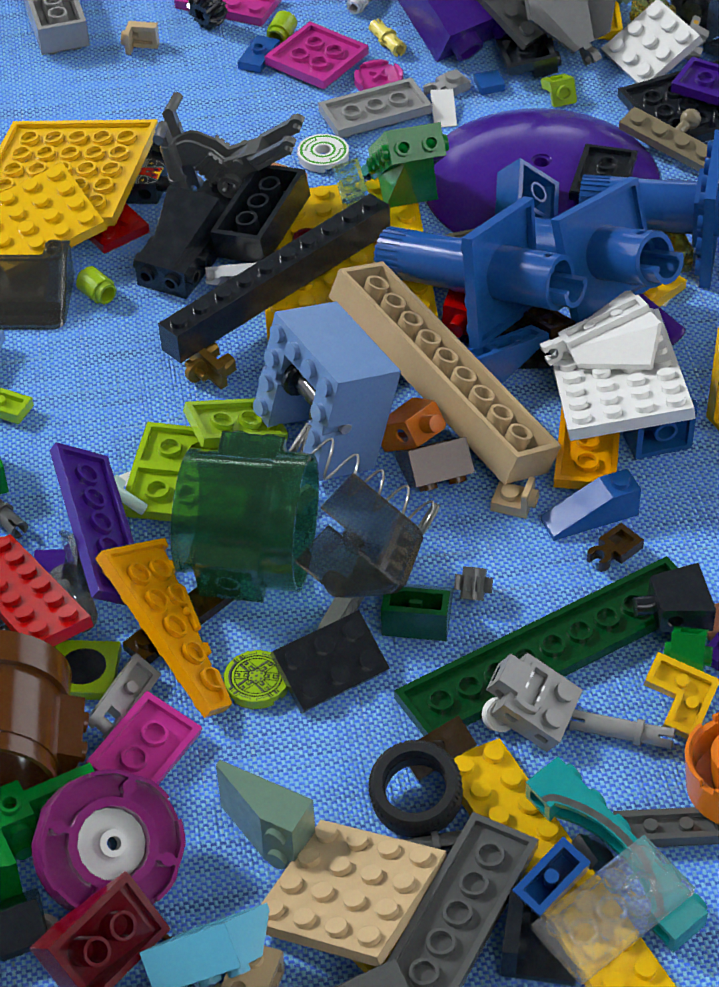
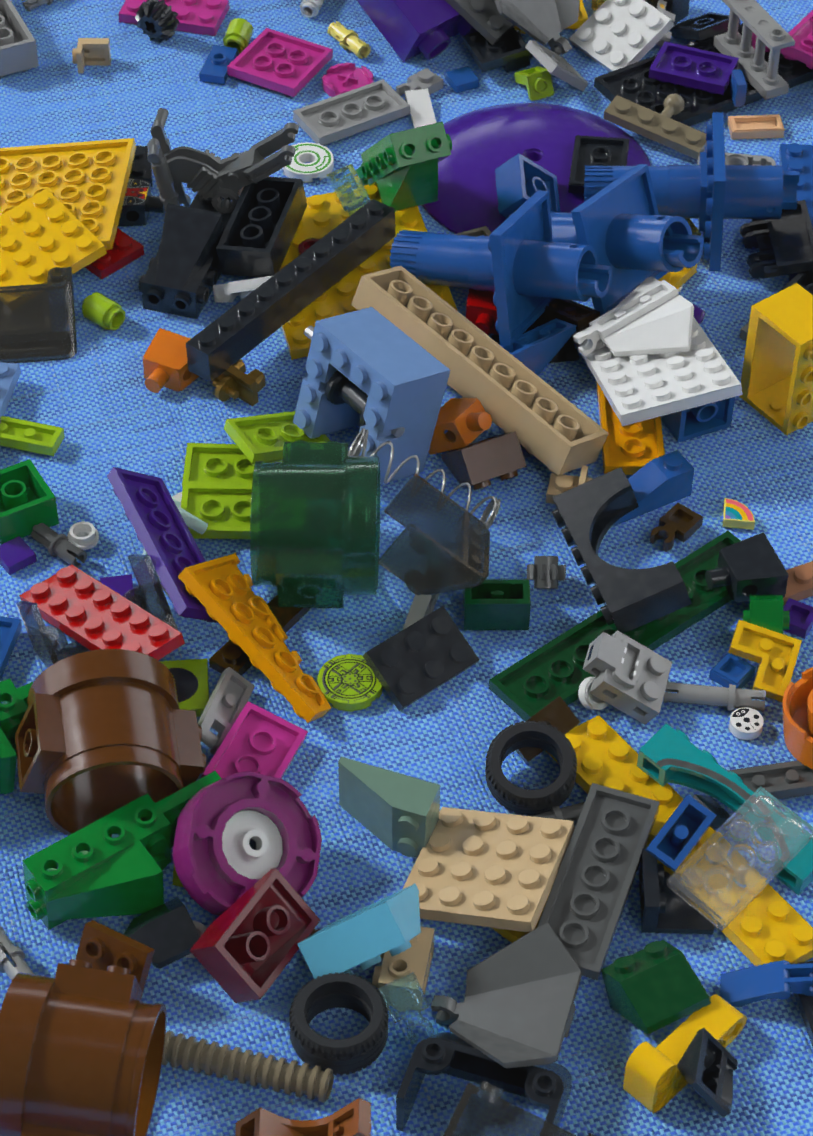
camera: 10 degrees left, 0 degrees up
(28, 506) = (83, 535): none -> white plate
(142, 341) = (167, 363): none -> orange torso
(547, 615) = (628, 595): none -> black arch
(582, 74) = (556, 65): none -> light grey tile
(646, 705) = (732, 671): none -> blue tile
(650, 761) = (746, 723): none -> white tile
(680, 540) = (737, 515): none -> tile

